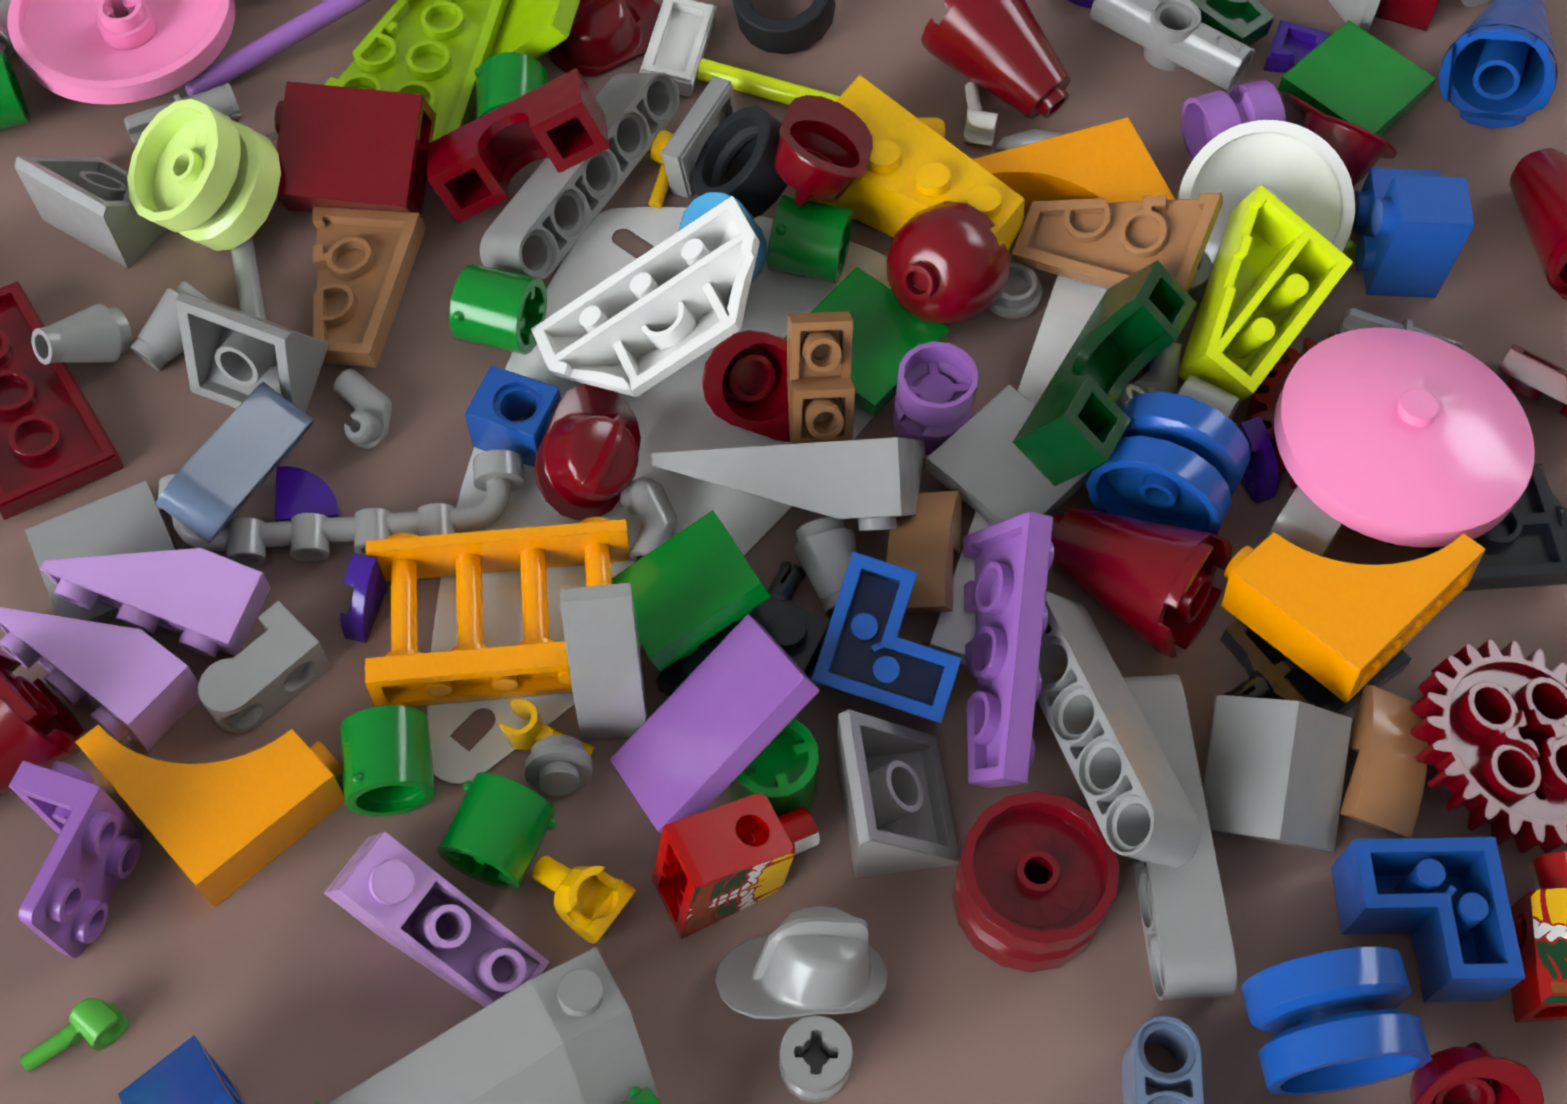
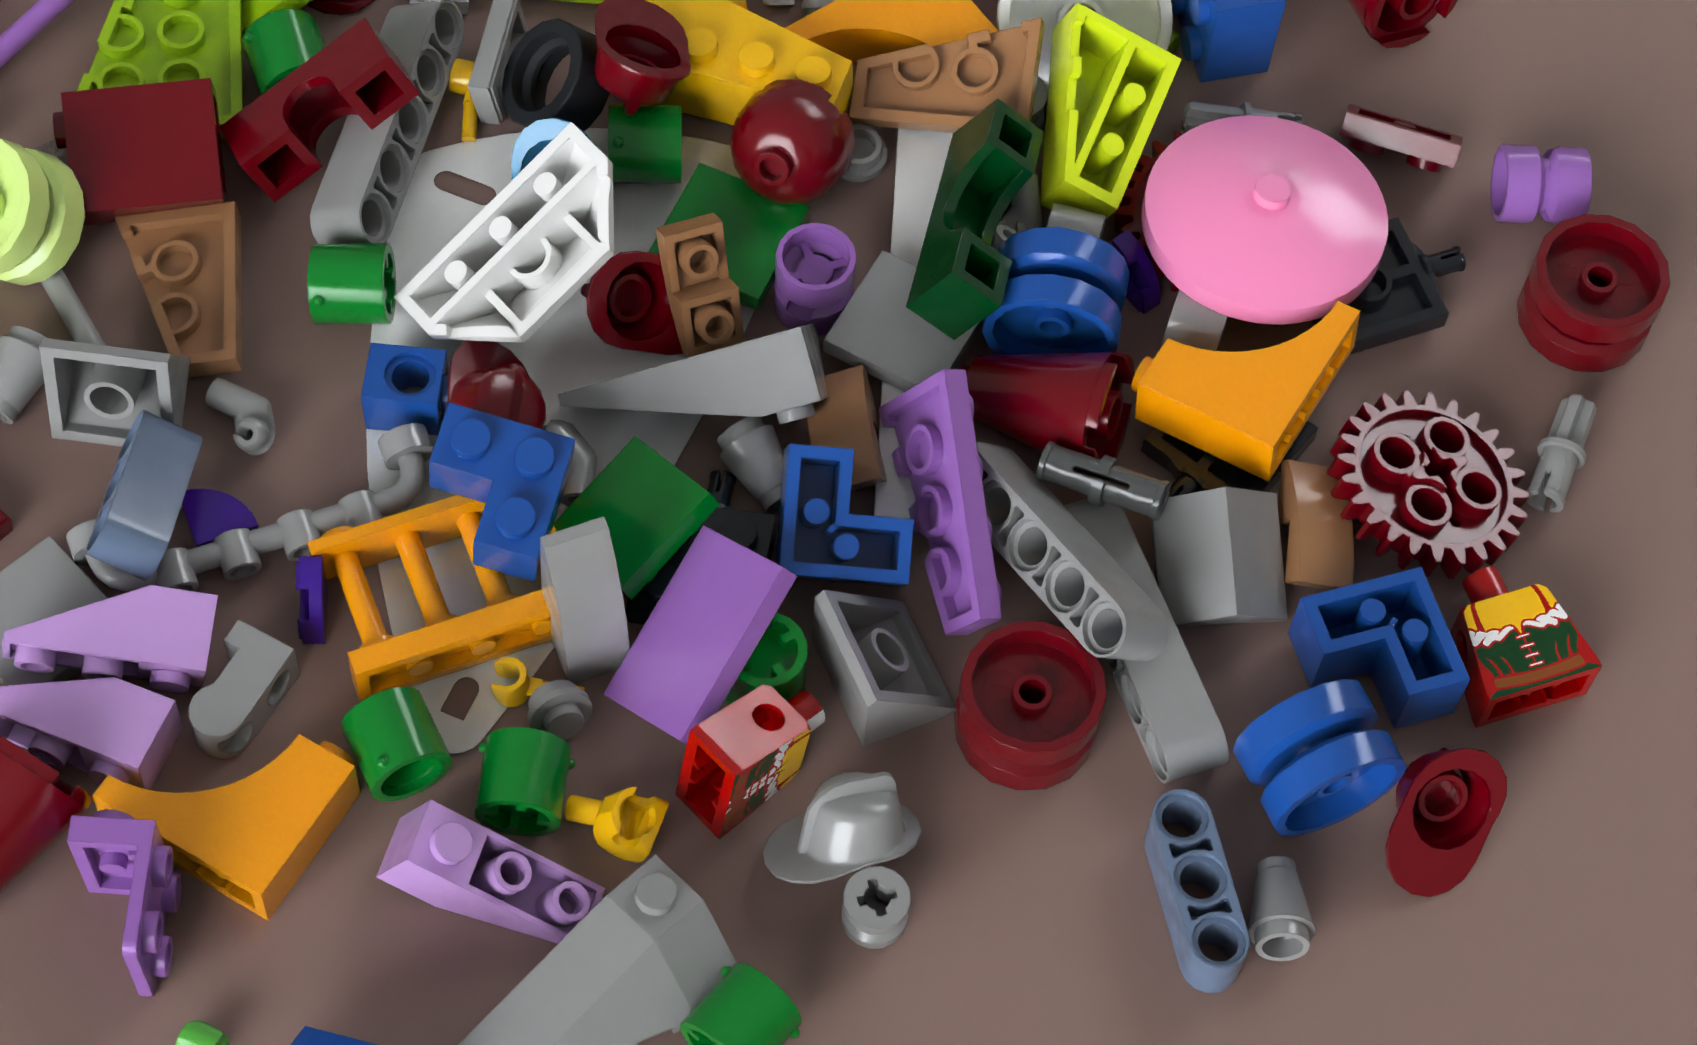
camera: 20 degrees left, 0 degrees up
(576, 518) = (514, 472): none -> blue brick
(1208, 689) = (1063, 467): none -> dark grey pin

